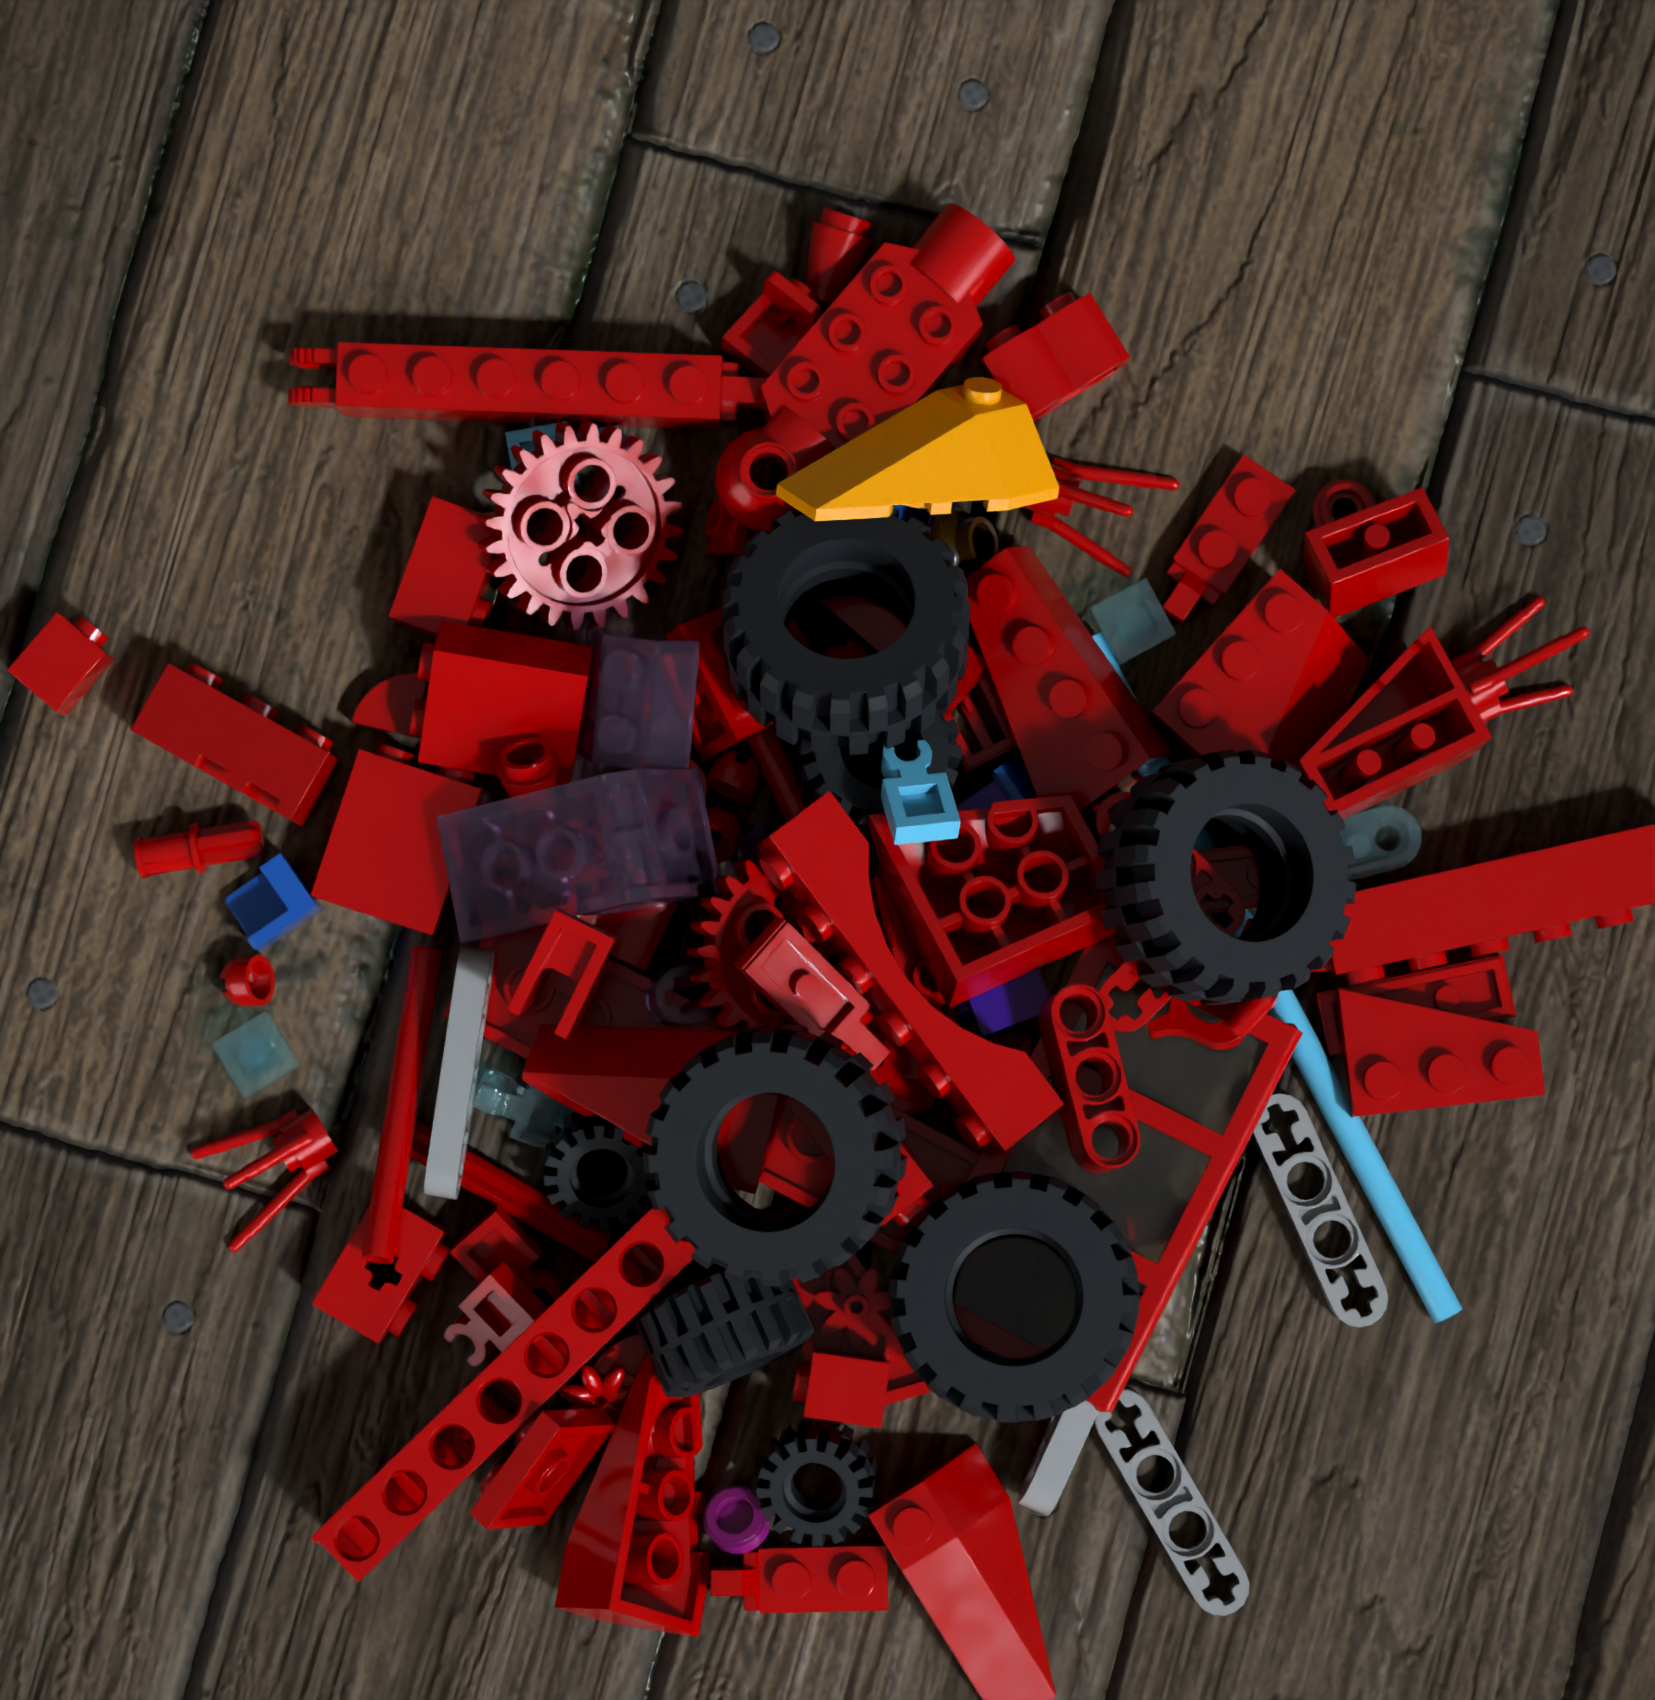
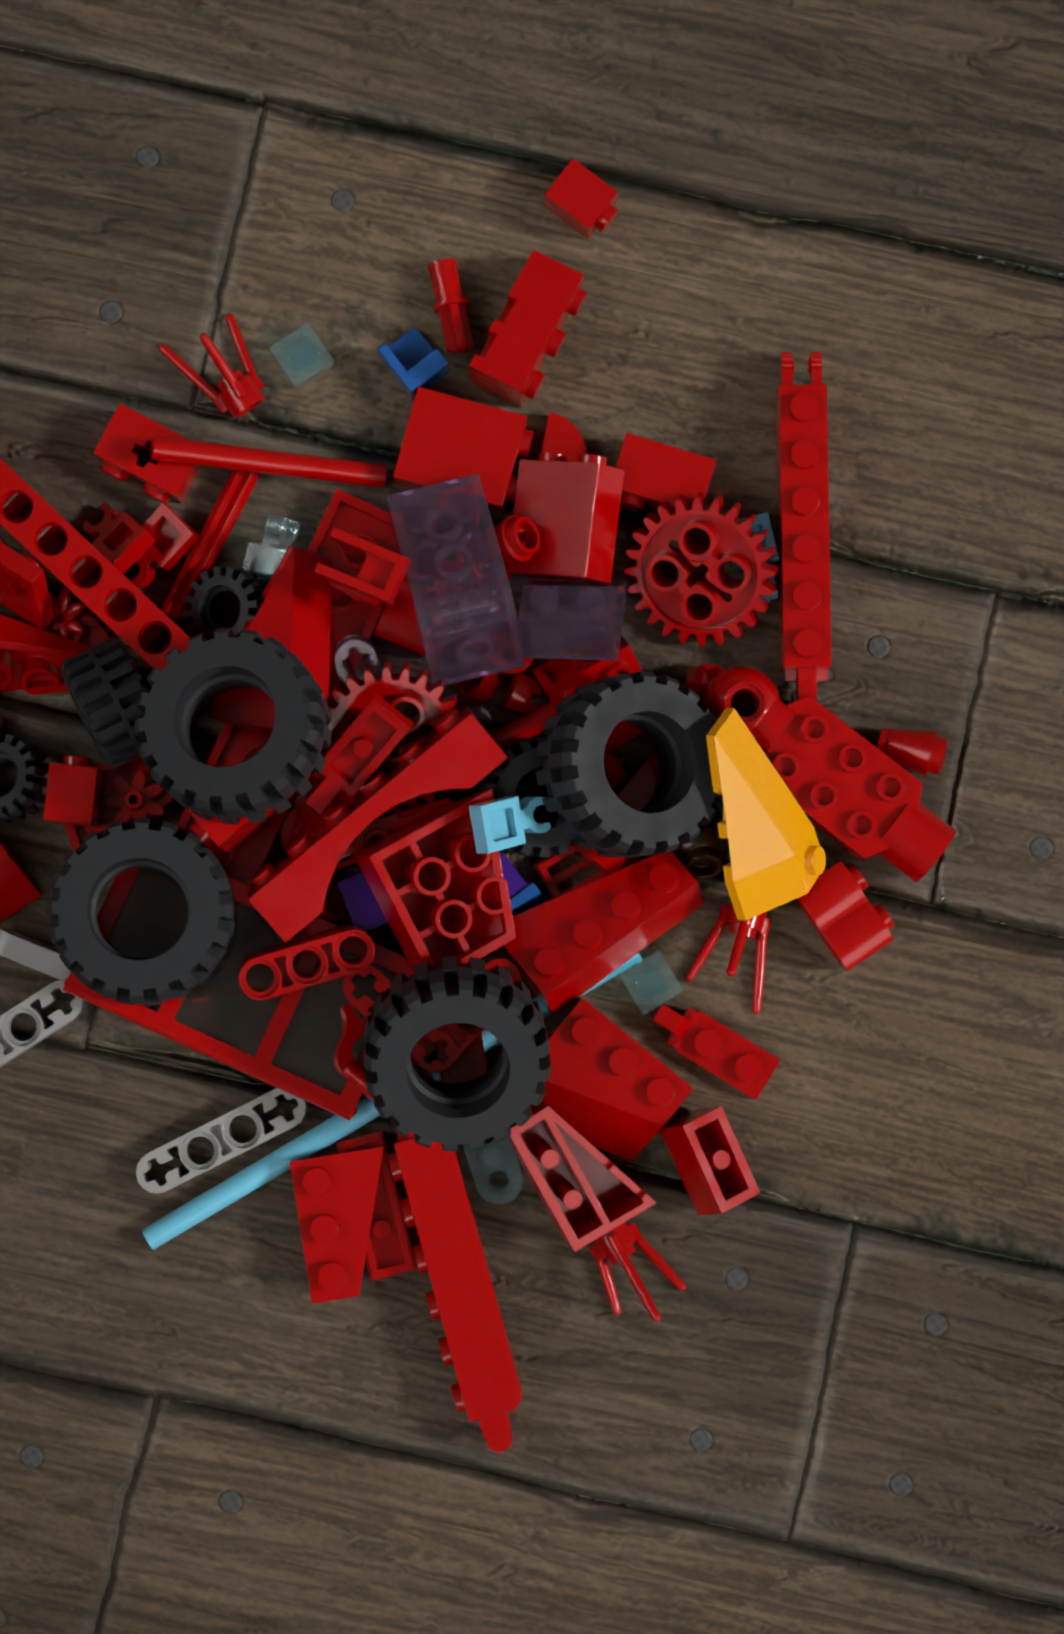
camera: 90 degrees right, 0 degrees up
(248, 981) = (355, 357): red hinge -> none
(459, 1072) = (293, 501): light grey beam -> none
(772, 325) = (858, 705): red bracket -> none
(1336, 491) = (757, 1132): red plate -> none

